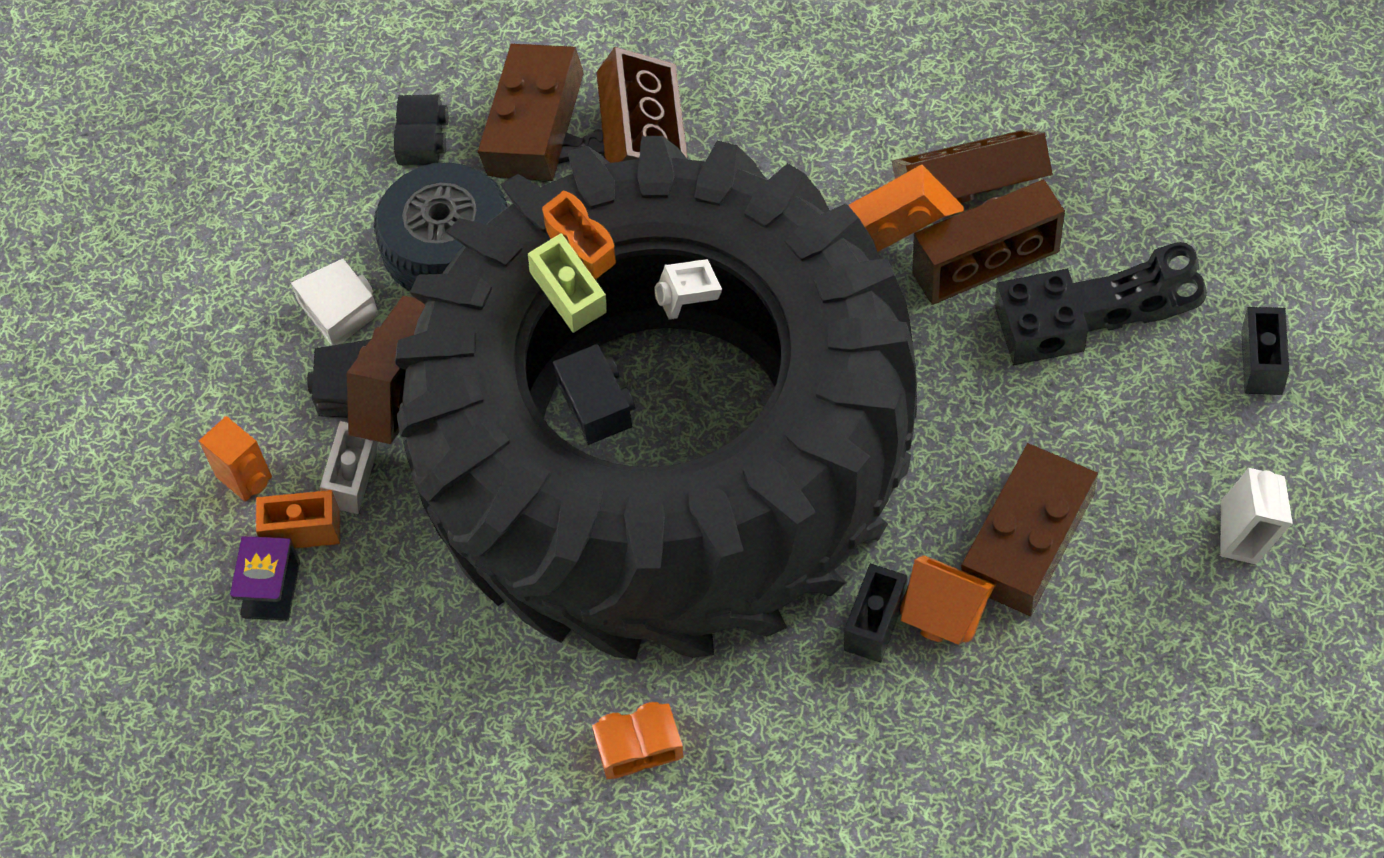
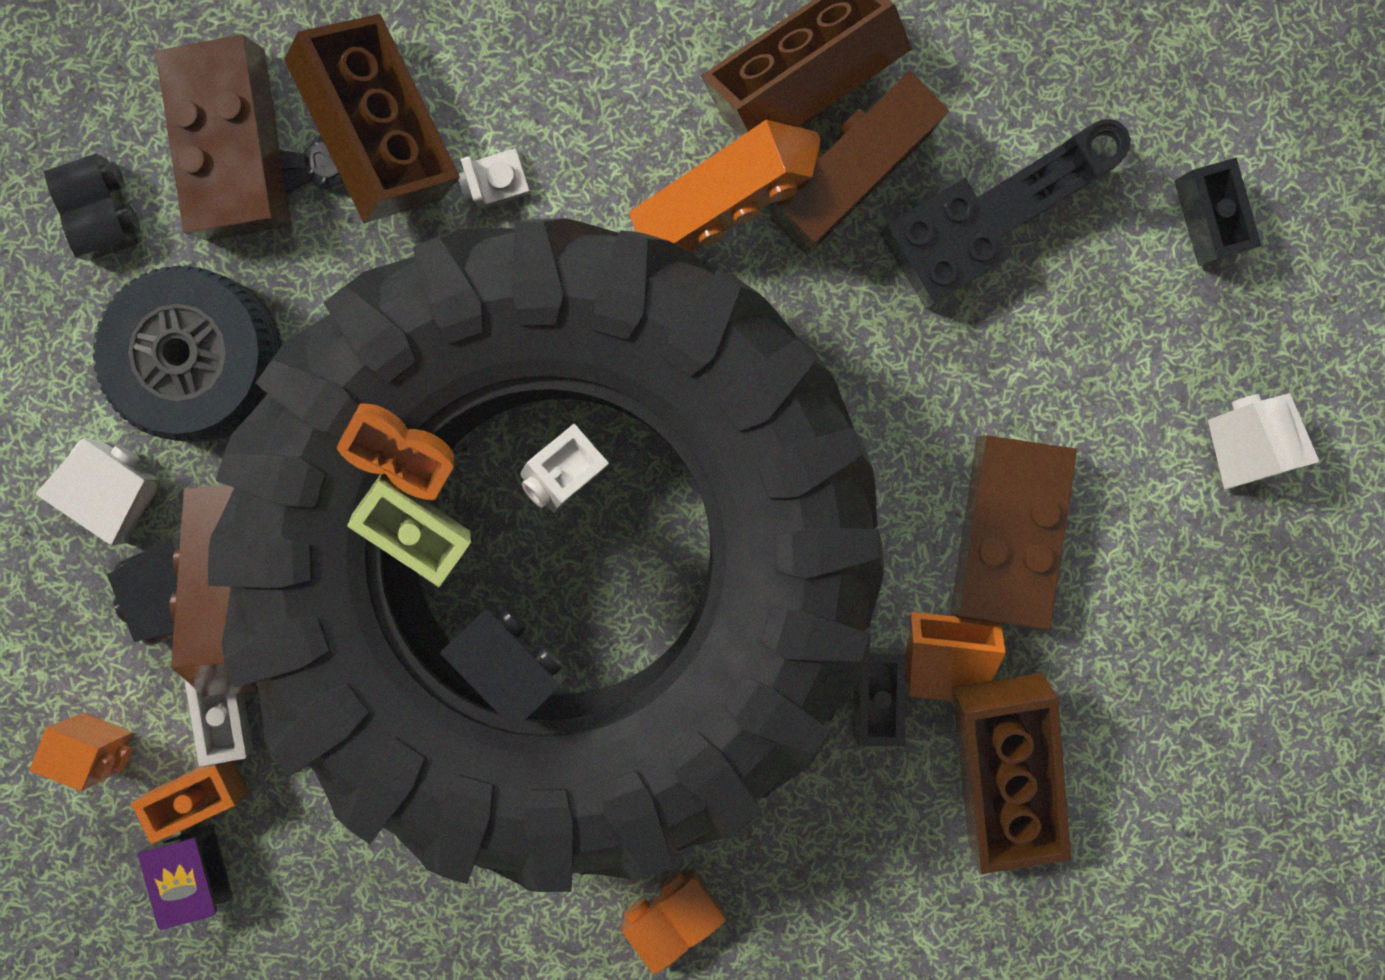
camera: 30 degrees left, 30 degrees up
(965, 696) = (1012, 772): none -> reddish brown brick

